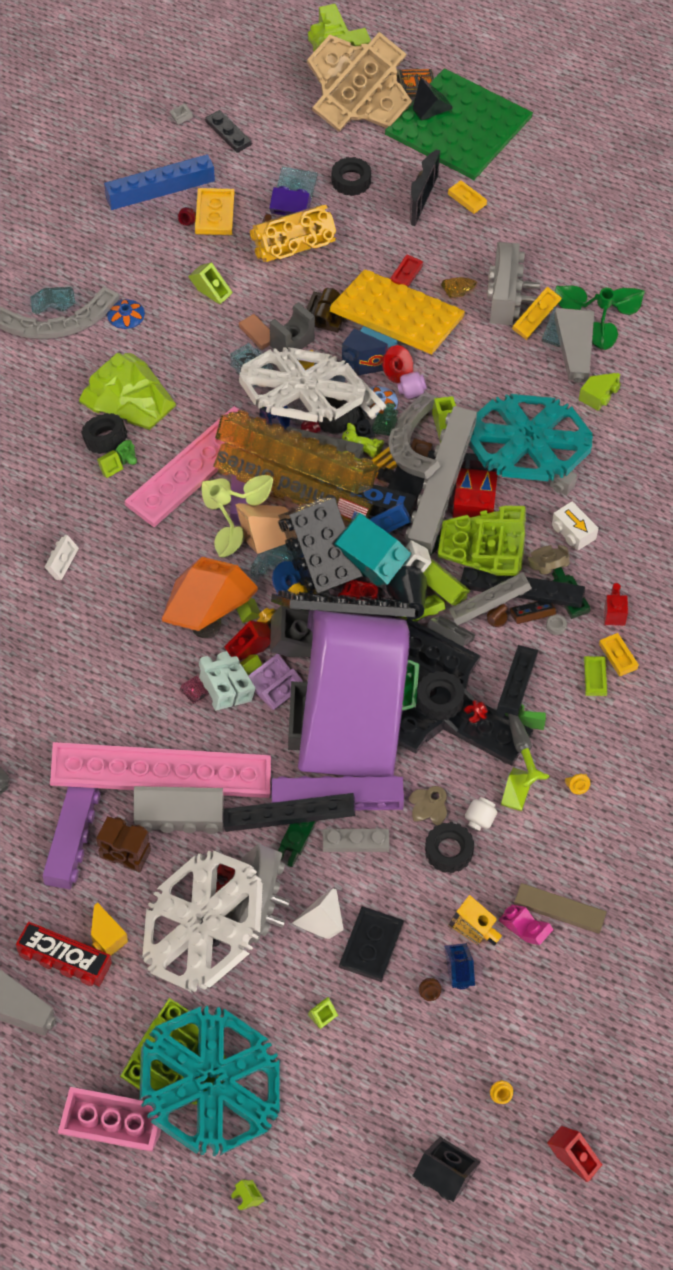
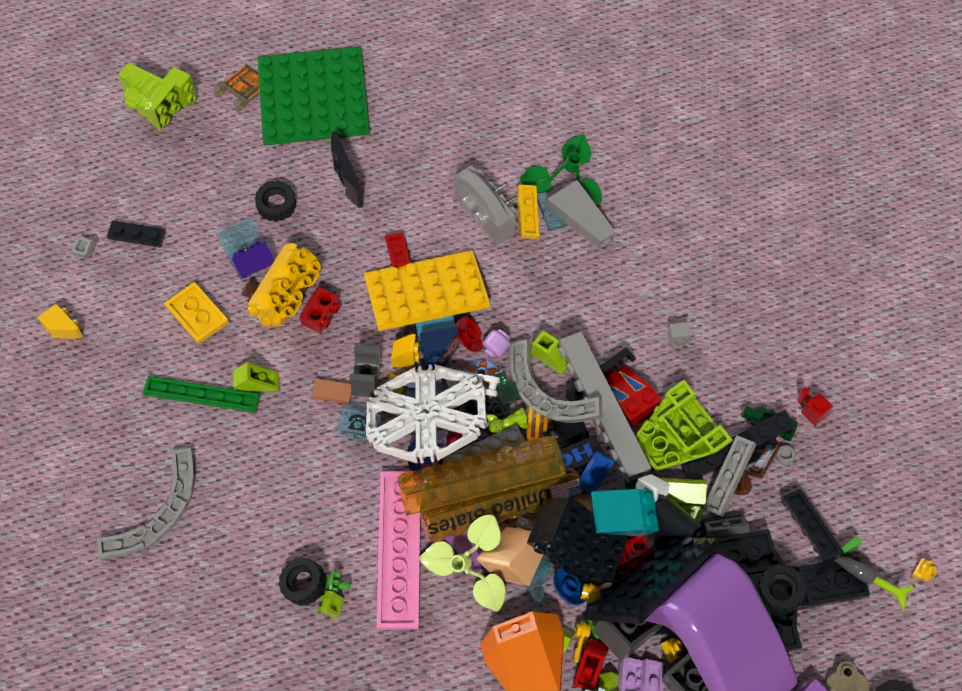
camera: 40 degrees left, 5 degrees up
(58, 297) = (141, 492): clear light blue slope -> none
(112, 151) = (58, 324): none -> yellow slope
(126, 319) = (215, 465): blue dish -> none
(128, 390) = (283, 527): lime wedge -> none
(159, 182) = (126, 322): blue brick -> none
(164, 268) = (202, 394): none -> green tile
(187, 216) = (178, 335): dark red plate -> none
(304, 270) = (315, 309): none -> red brick
(320, 307) = (364, 330): dark brown plate -> none
(332, 340) = (405, 352): none -> yellow slope
(359, 82) = (209, 116): tan plate -> none
(421, 447) = (555, 391): reddish brown plate -> none
(429, 101) = (278, 93): black slope -> none
(457, 286) = (447, 233): clear yellow plate -> none
(467, 197) = (381, 153): yellow plate -> none
(479, 711) = (813, 574): red plate -> none
(481, 814) = (891, 657): white head -> none
(515, 792) = (889, 612): lime slope -> none
(538, 446) = (637, 319): teal plate -> none
(546, 558) = (738, 414): dark tan plate -> none
(574, 526) = (723, 365): white brick -> none
(595, 676) = (850, 473): lime tile -> none
(599, 389) = (631, 241): lime slope -> none
(618, 654) = (851, 443): yellow plate -> none

